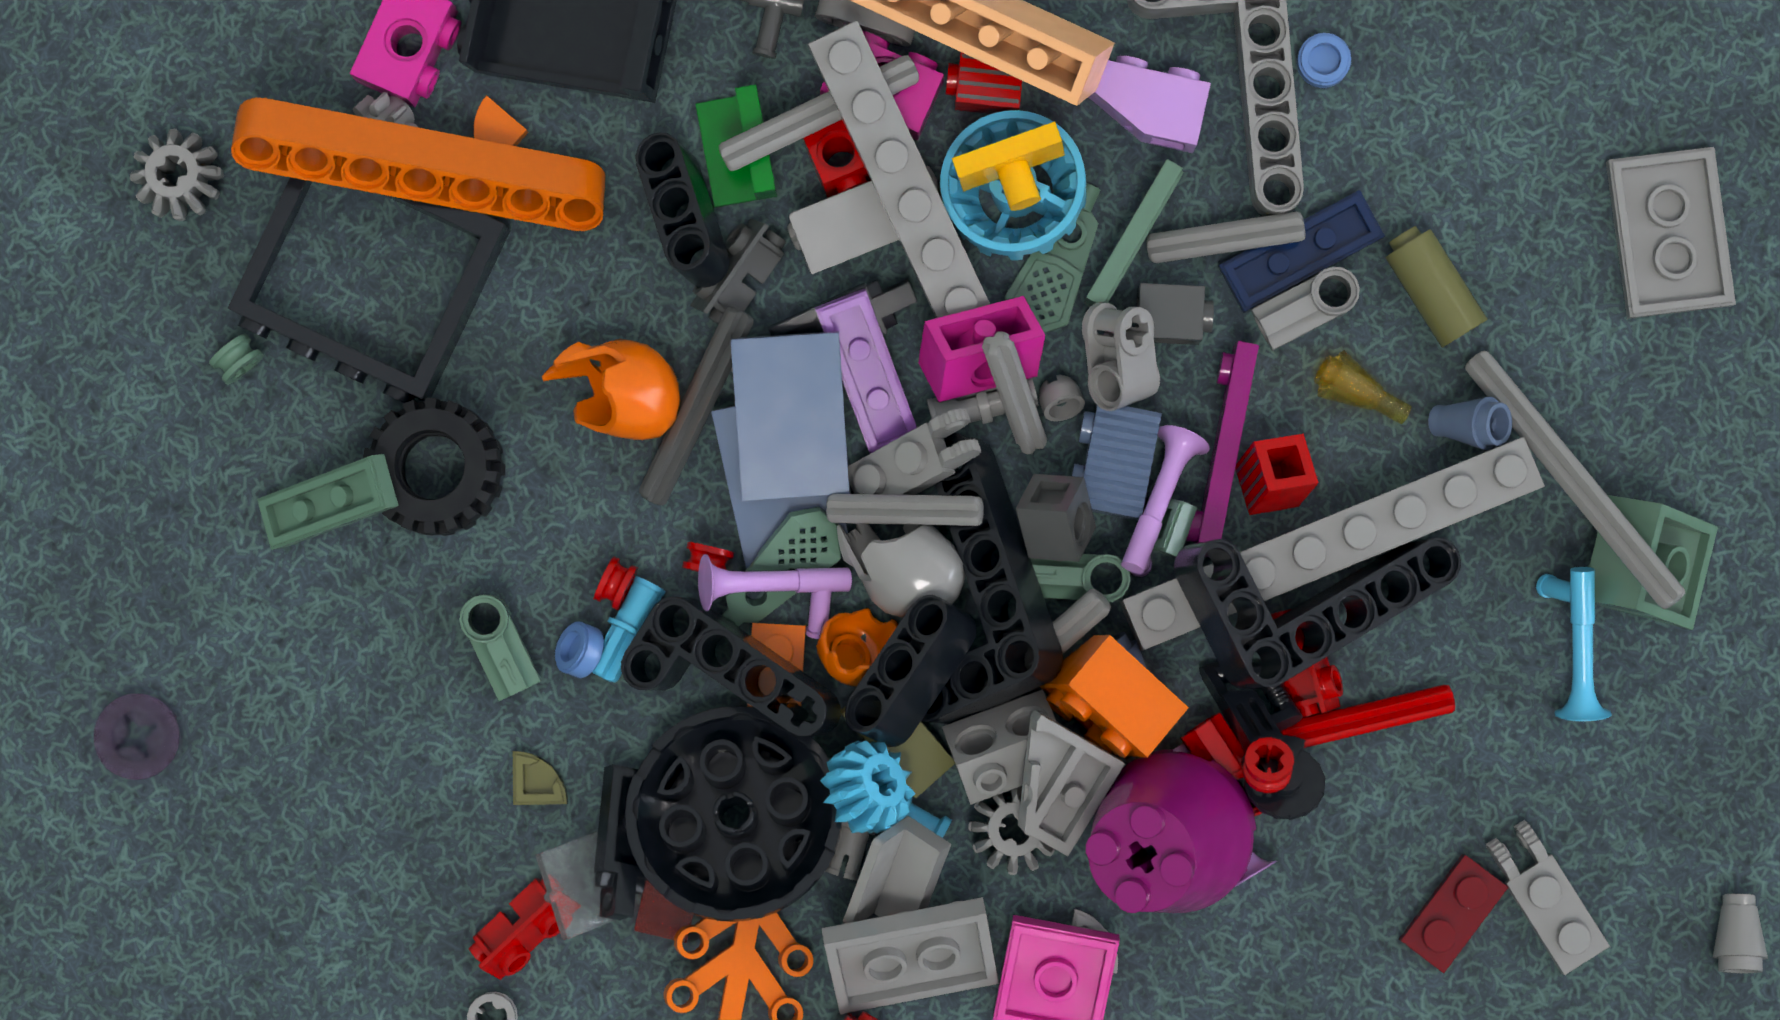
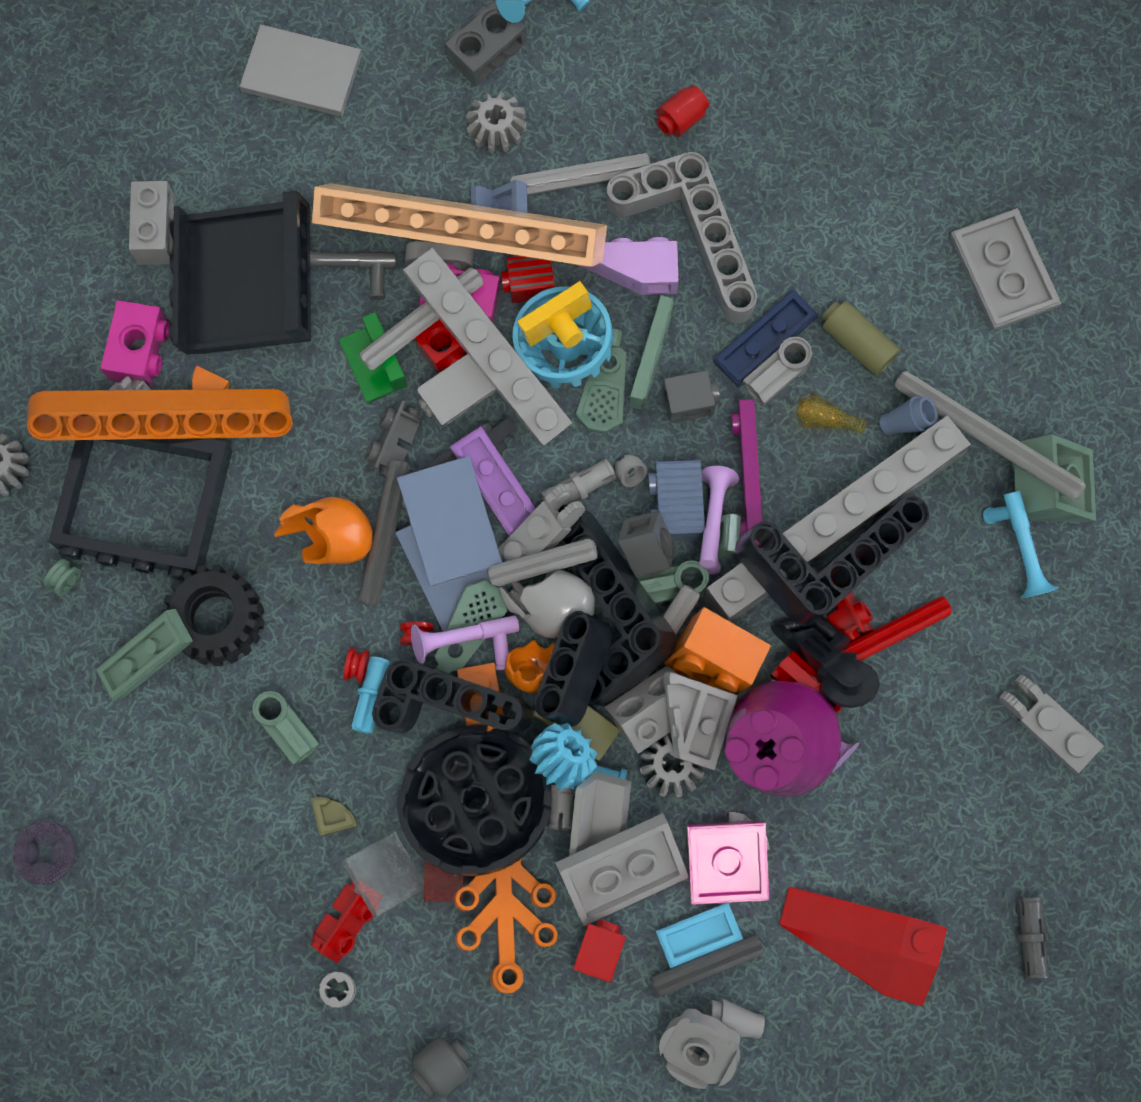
camera: 15 degrees left, 10 degrees down
(579, 649) = (341, 716): medium blue tile -> none
(614, 862) = (399, 854): black hinge -> none
(697, 225) = (344, 404): black beam -> none
(953, 344) = (568, 445): dark pink brick -> none
(1014, 392) = (597, 467): light grey axle -> none
(1121, 360) = (665, 429): light grey piece -> none
(1226, 237) = (713, 339): light grey axle -> none
(1268, 748) = (837, 682): red bush -> none
(1276, 474) = (788, 481): red brick -> none
(1323, 60) = (747, 214): medium blue tile -> none
(1453, 913) = (990, 750): dark red plate -> none

